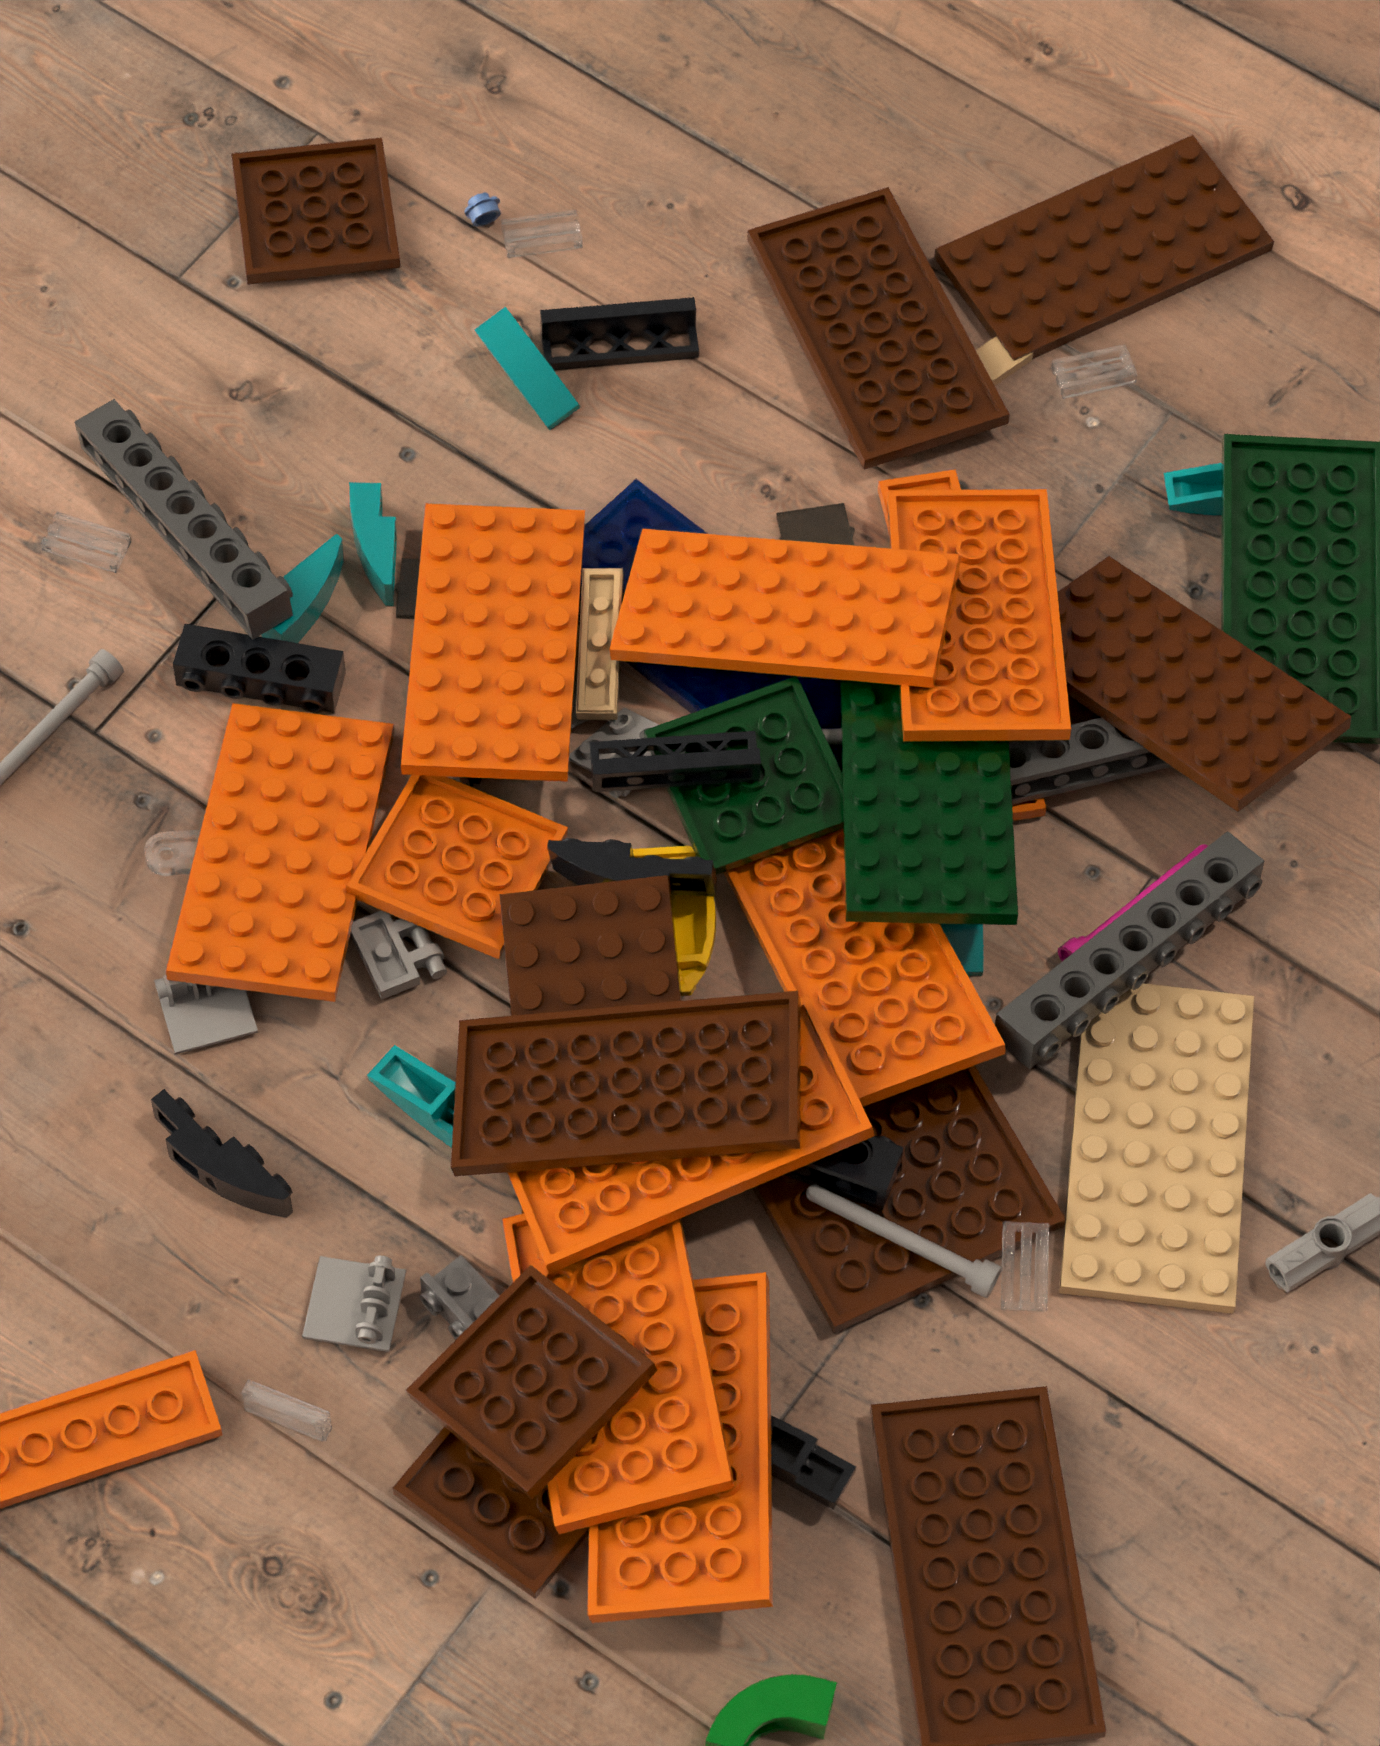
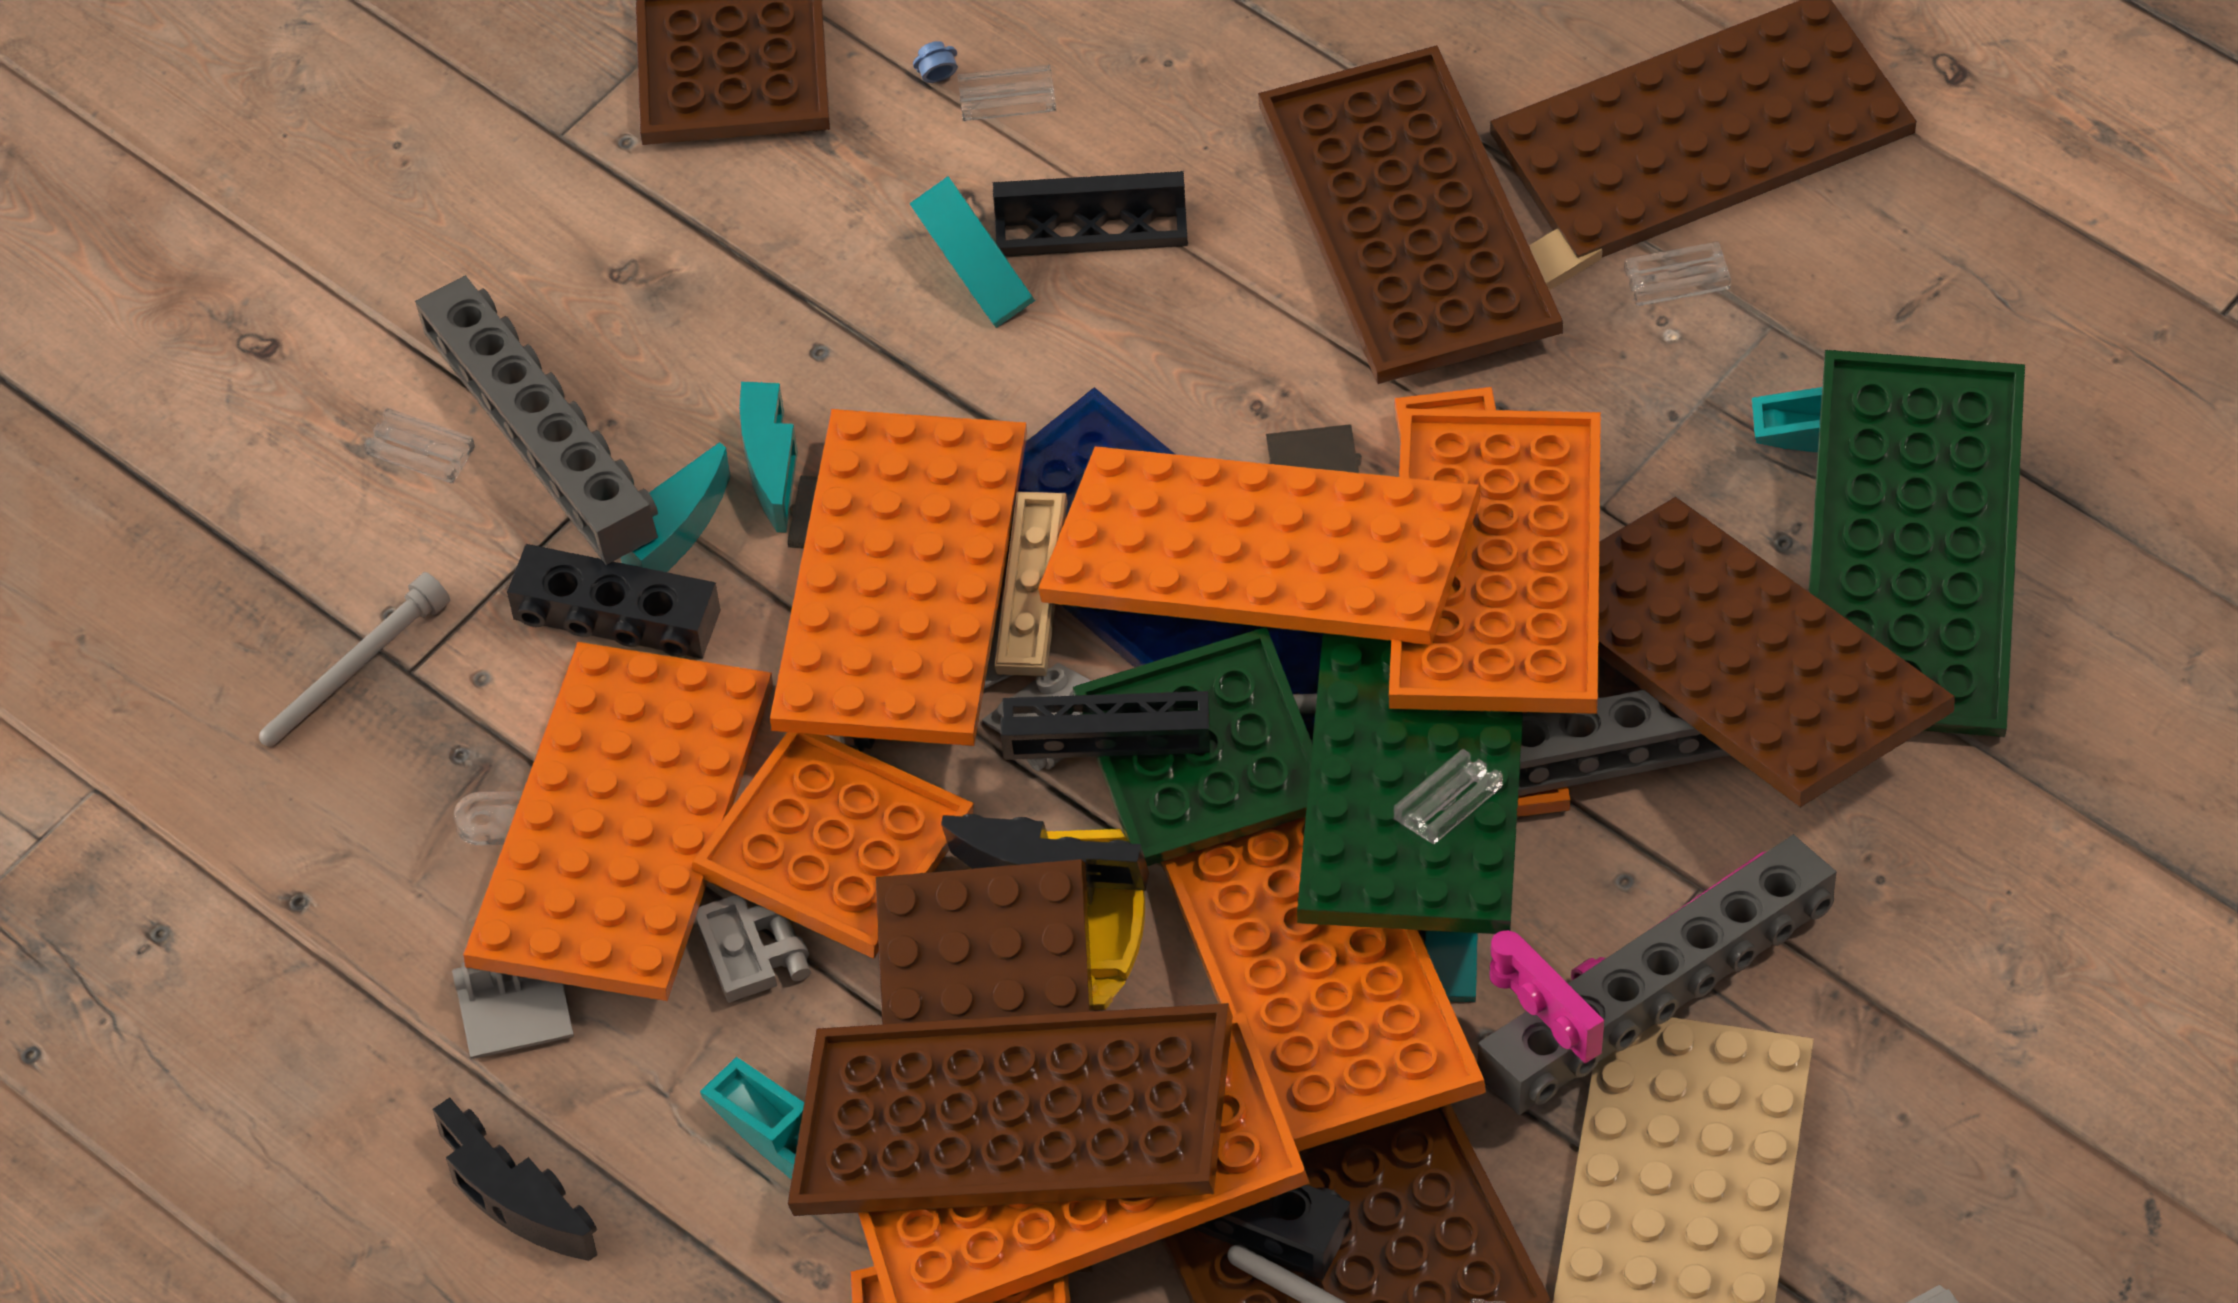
camera: 10 degrees right, 5 degrees down
(953, 797) = (1440, 792): none -> clear tile
(1049, 973) = (1546, 995): none -> dark pink plate

